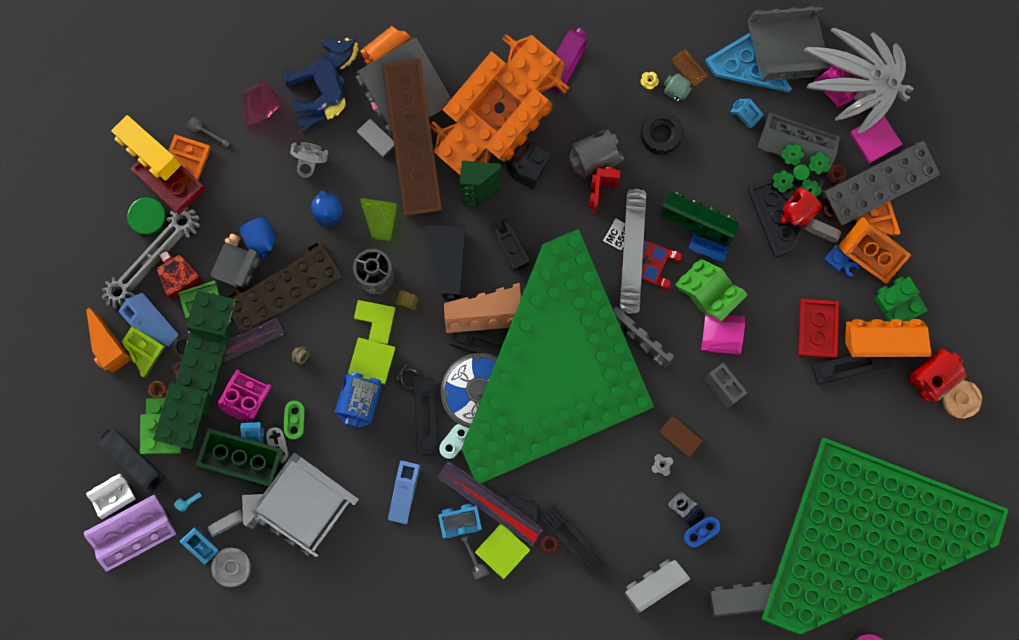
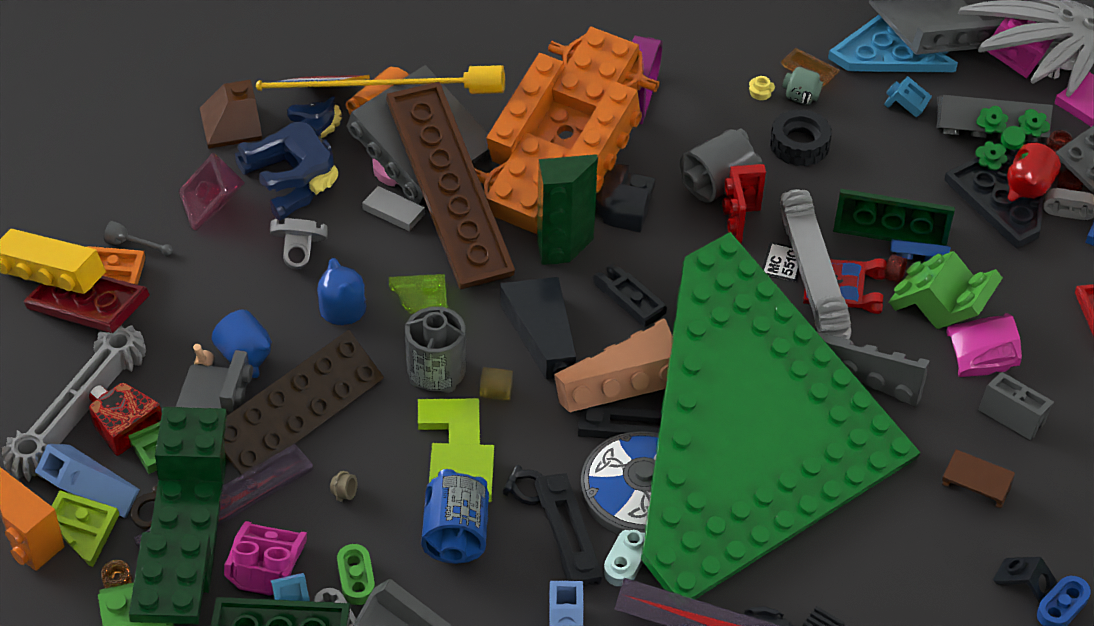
camera: 15 degrees left, 30 degrees down
(146, 216) = (59, 353): green tile -> none
(285, 36) = (231, 115): none -> reddish brown slope
(349, 21) = (478, 80): none -> yellow flag
(657, 465) = (960, 532): light grey plate -> none
(687, 259) = (895, 268): none -> clear red axle

